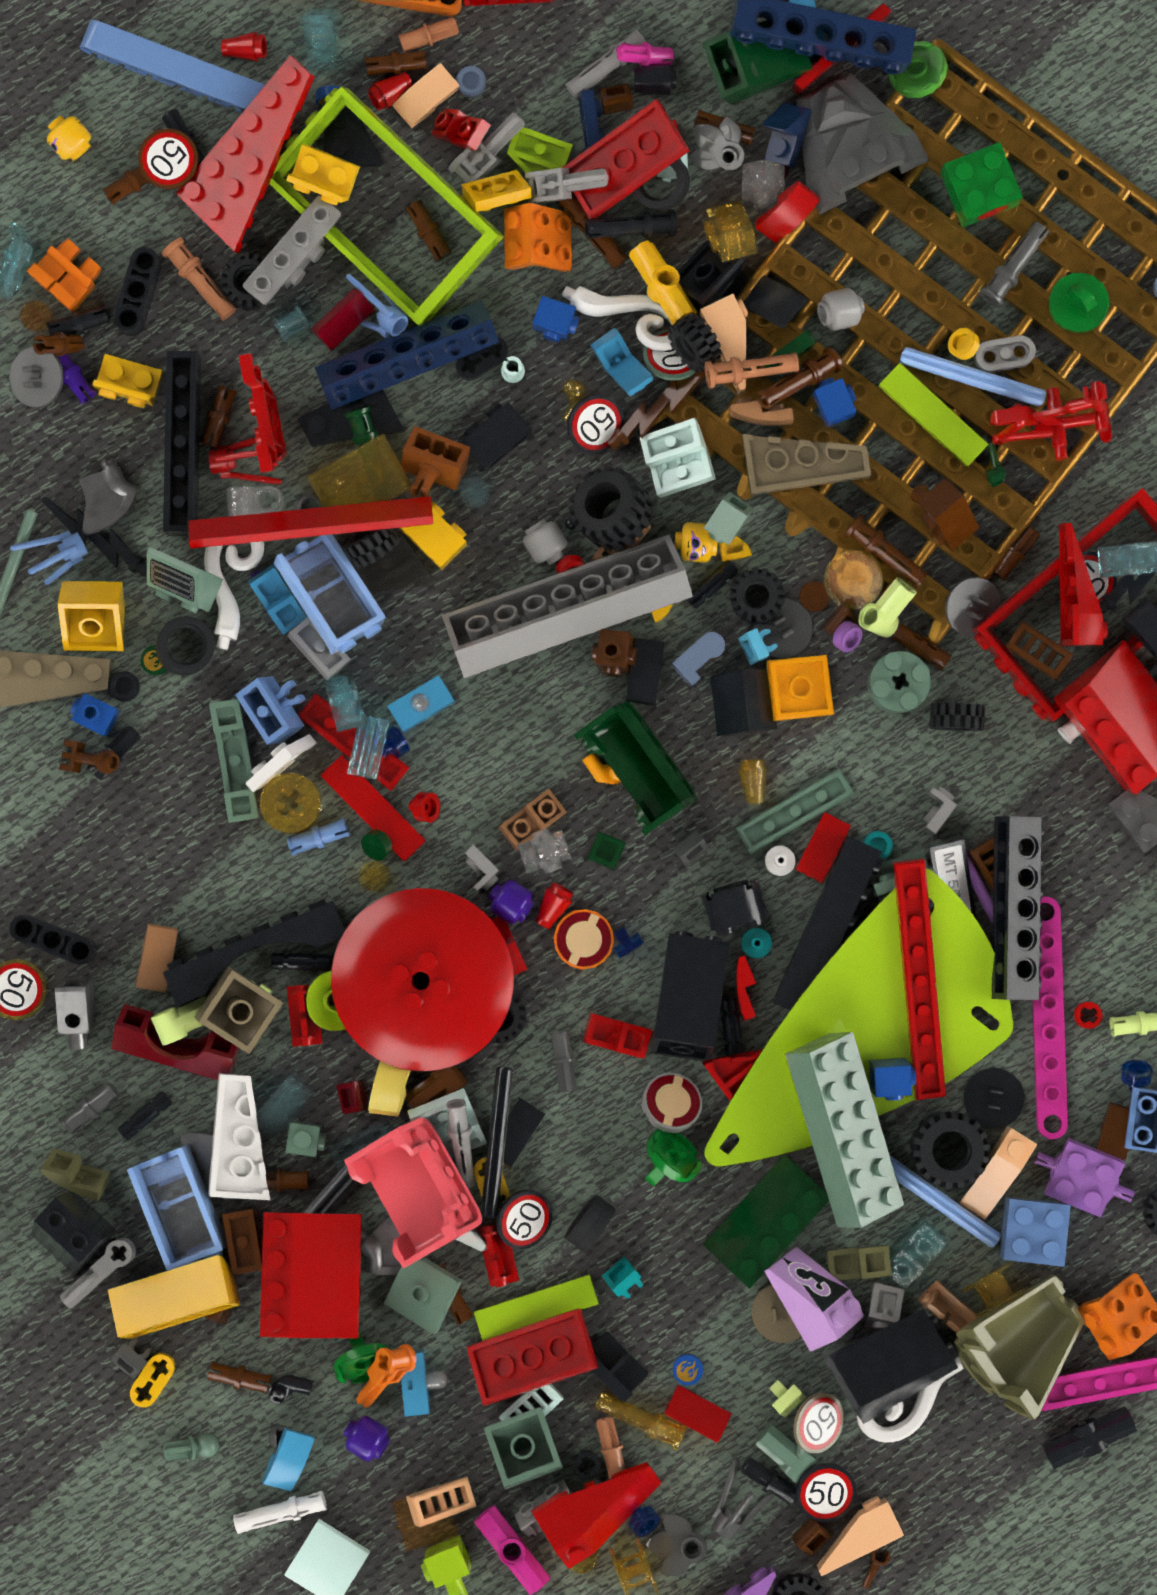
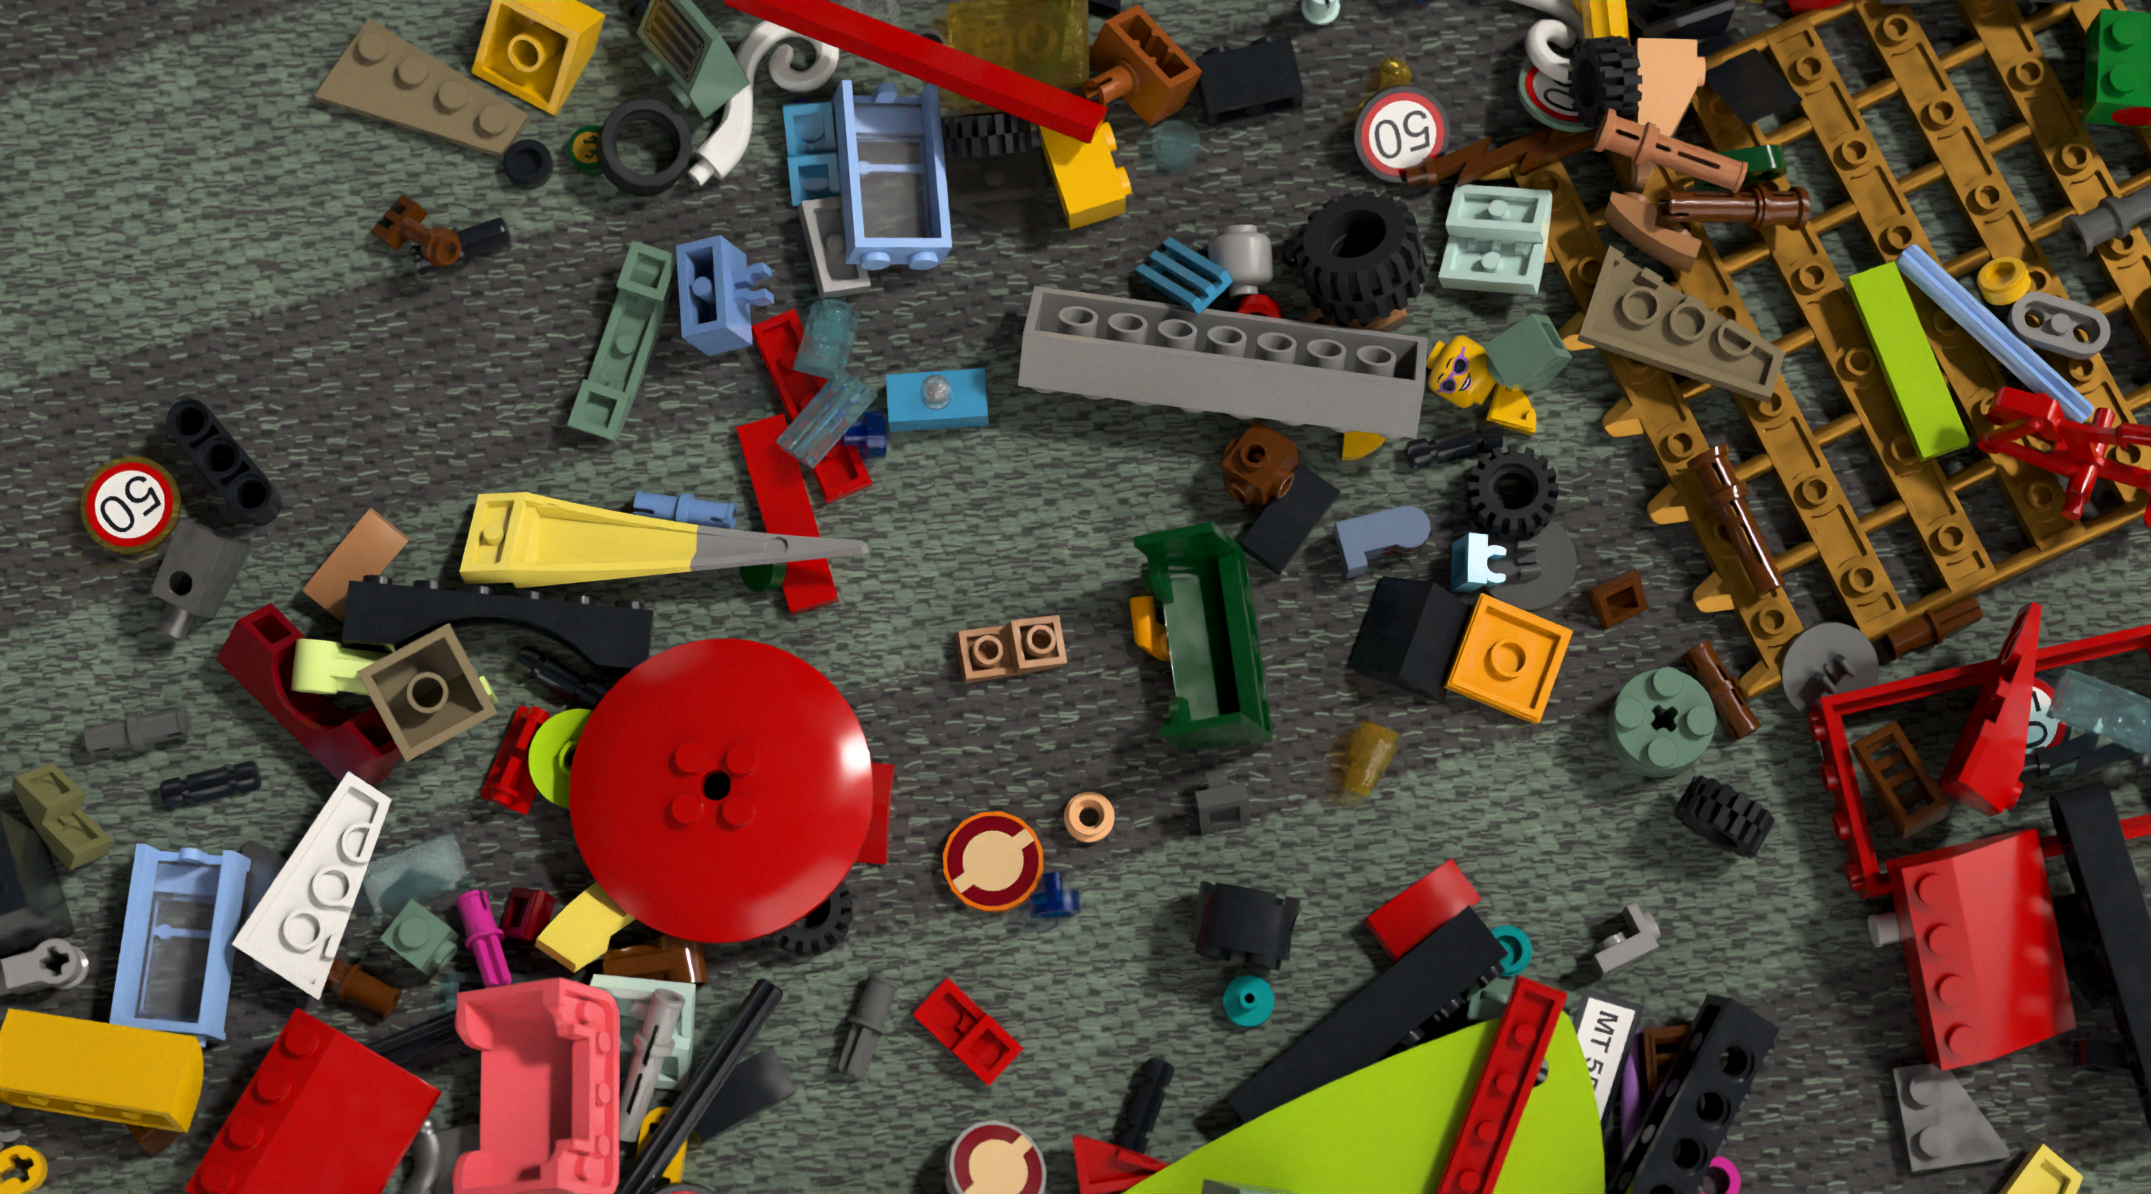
camera: 30 degrees right, 10 degrees down
(94, 714) = (463, 179): blue brick -> none
(243, 1240) = (245, 1037): reddish brown panel -> none
(261, 889) = (558, 542): none -> light yellow plate
(273, 804) = (694, 429): clear yellow piece -> none
(282, 758) = (686, 375): white wing -> none
(337, 1121) = (483, 938): none -> dark pink axle
(374, 876) = (735, 611): clear yellow tile -> none
(425, 807) = (878, 546): red tile -> none
(479, 863) = (897, 669): light grey bracket -> none
(502, 562) = (1166, 261): none -> dark azure tile
(511, 901) = (914, 749): dark purple head -> none
(544, 851) = (1013, 700): clear brick -> none
(554, 903) = (975, 787): red cone -> none
(606, 850) = (1095, 749): dark green tile -> none
(612, 893) = (1092, 801): none -> light nougat plate
(620, 363) = (1481, 63): dark azure bracket -> none
(690, 996) = (1104, 1027): black slope -> none
(743, 979) = (1200, 1046): red slope -> none
(774, 866) = (1347, 909): white tile -> none
(794, 811) = (1407, 836): sand green tile -> none
(814, 597) = (1597, 540): reddish brown piece -> none
(834, 401) = (1769, 267): blue brick -> none
(840, 309) = (1844, 142): light grey head -> none
(847, 636) = (1617, 619): medium lavender tile -> none
(854, 578) = (1669, 539): clear yellow tile -> none
(883, 616) = (1686, 612): yellowish green piece -> none
(945, 513) = (1856, 505): reddish brown brick -> none
(997, 474) = (1959, 493): dark green hand -> none

